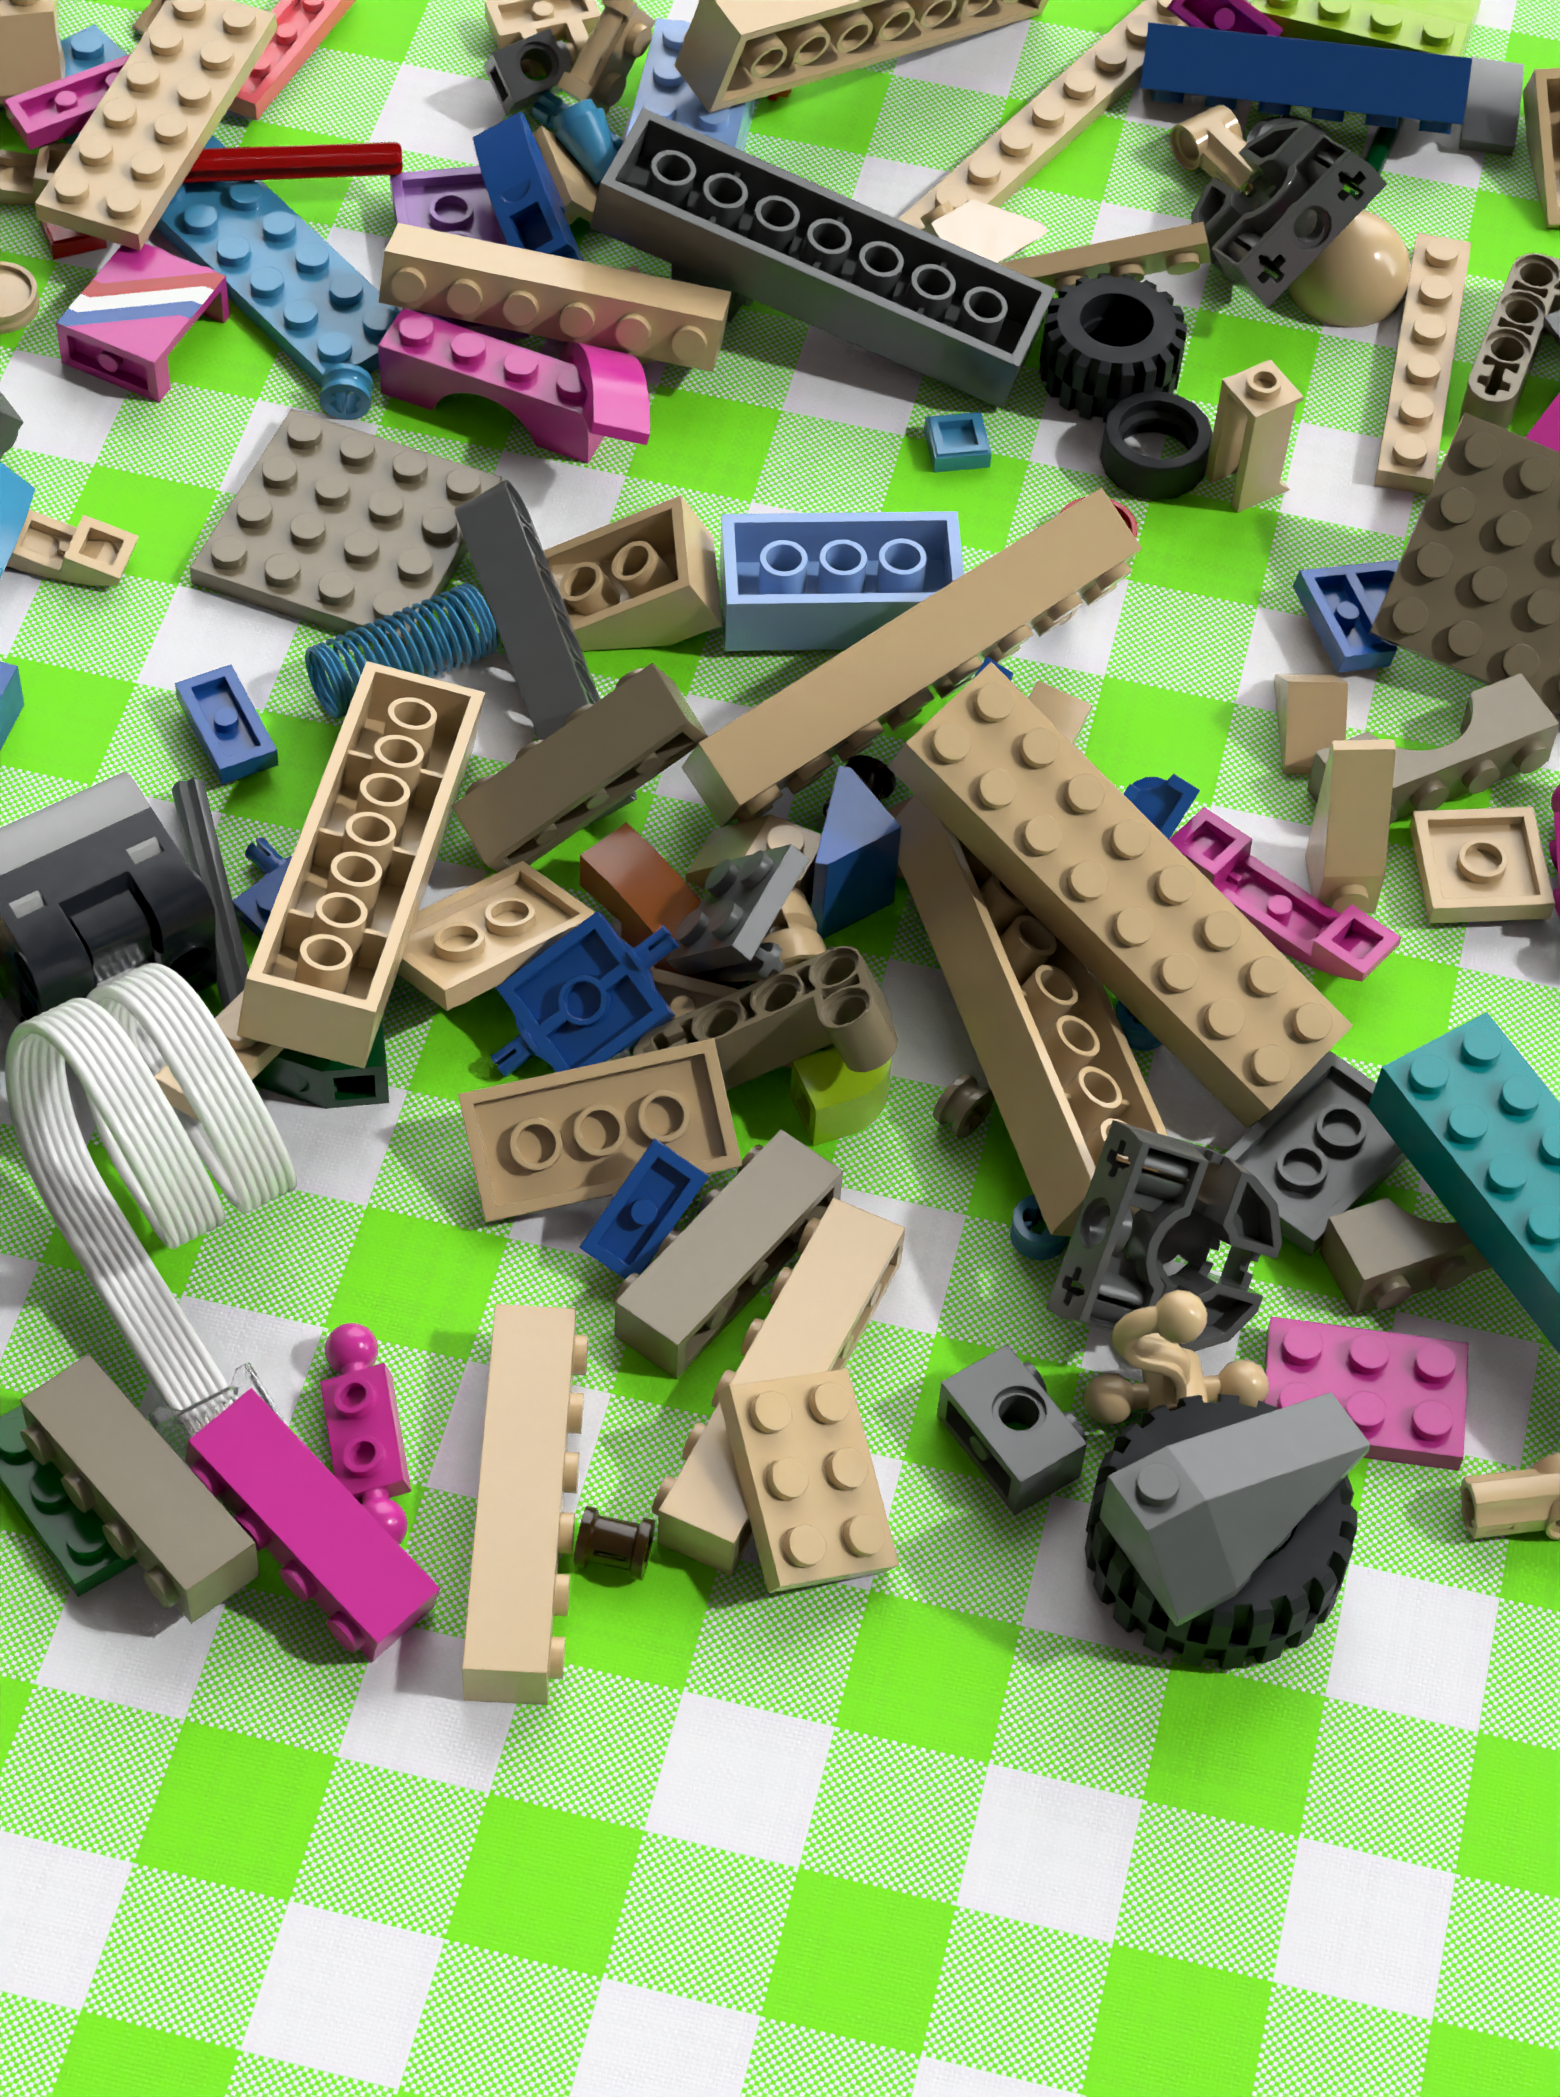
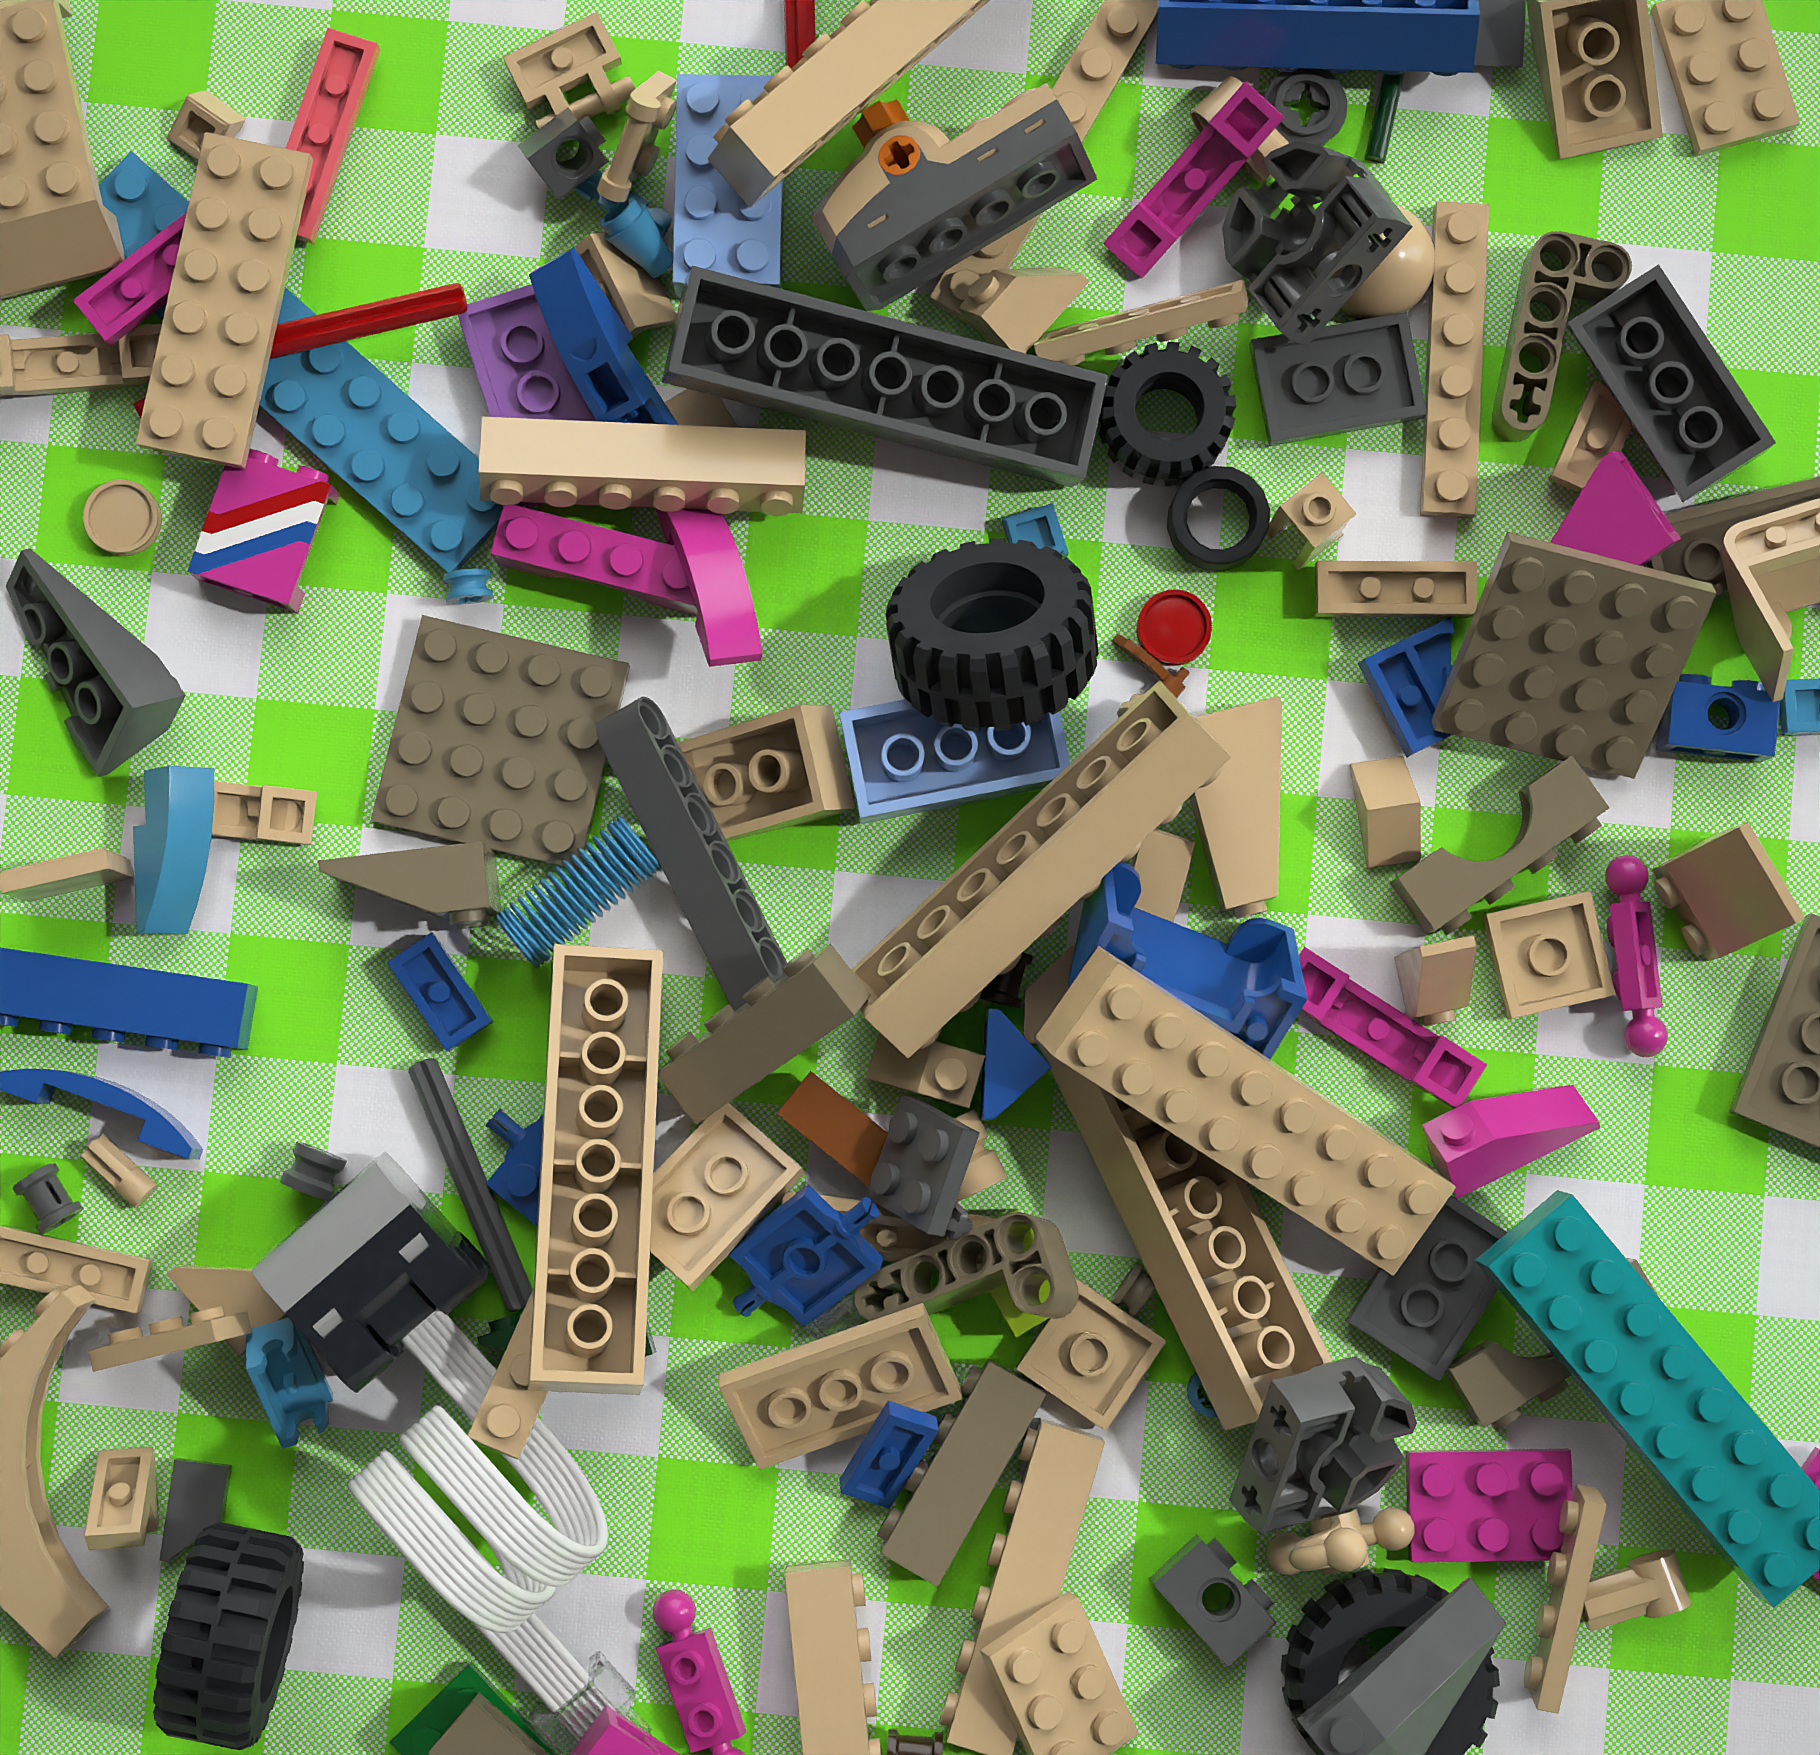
camera: 10 degrees left, 30 degrees up
(229, 602) = (443, 881): none -> dark tan slope
(899, 458) = (992, 634): none -> black tyre
(905, 1161) = (1092, 1356): none -> tan plate
(927, 131) = (930, 202): none -> dark grey piece
(1140, 672) = (1242, 807): none -> tan slope
(1176, 171) = (1194, 179): none -> dark pink slope
(1322, 350) = (1341, 382): none -> dark grey plate
(1331, 526) = (1395, 589): none -> tan plate
(1404, 1010) = (1504, 1134): none -> dark pink slope
(1437, 1500) = (1570, 1576): none -> tan plate

